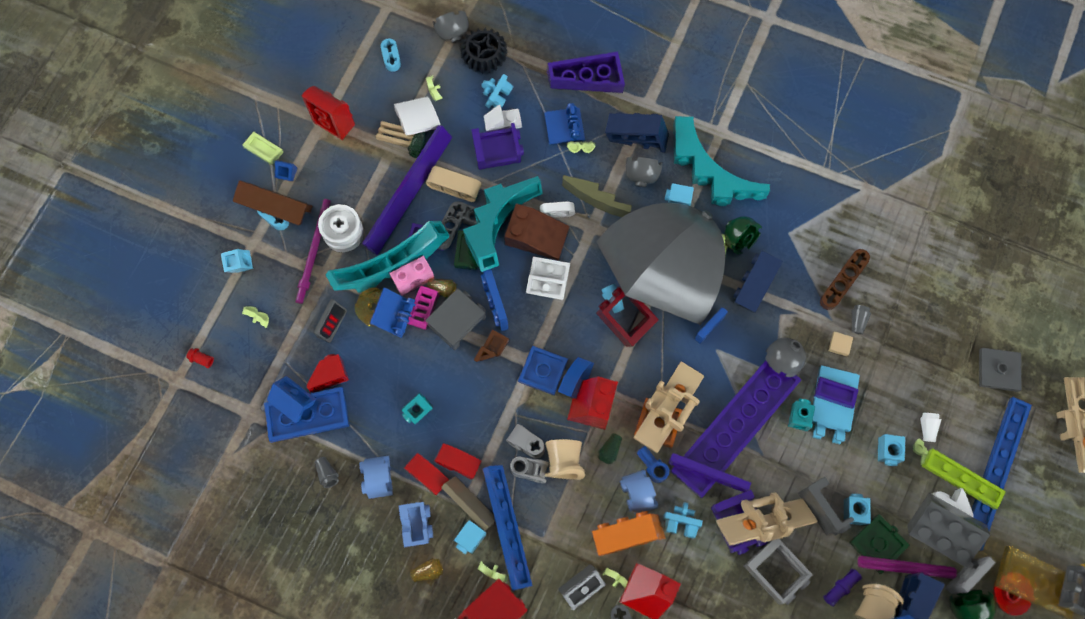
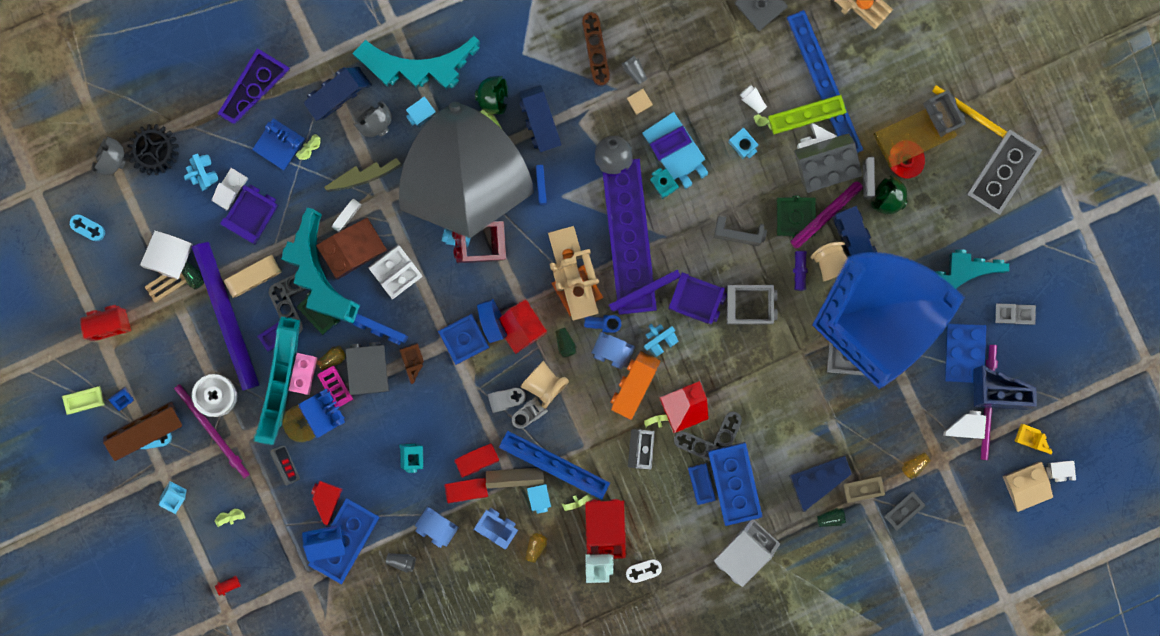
camera: 45 degrees left, 15 degrees up
(433, 89) = (153, 222): yellowish green piece -> none
(768, 527) = (717, 284): tan piece -> none
(864, 503) = (761, 218): medium azure brick -> none

